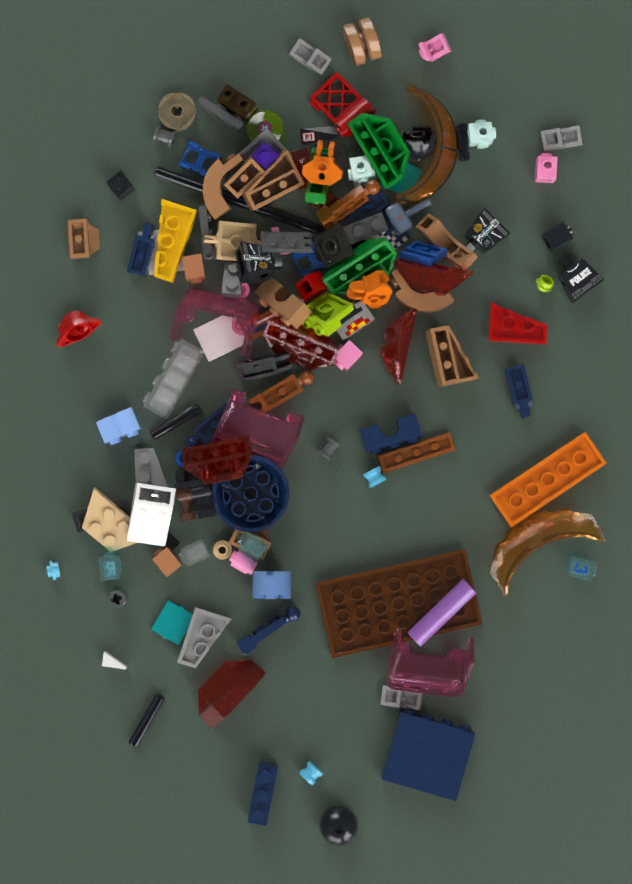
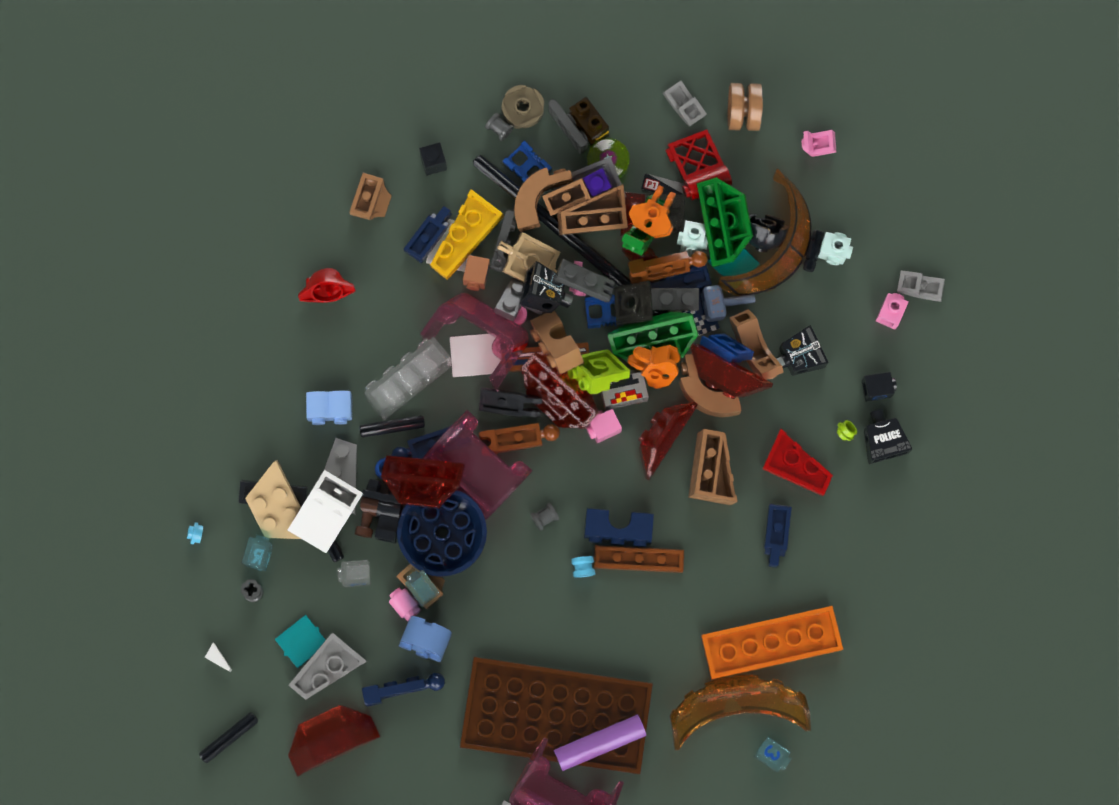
camera: 15 degrees right, 10 degrees down
(166, 561) = (322, 570): nougat brick -> none
(227, 554) = (387, 589): tan plate -> none
(311, 286) = (593, 337): red brick -> none

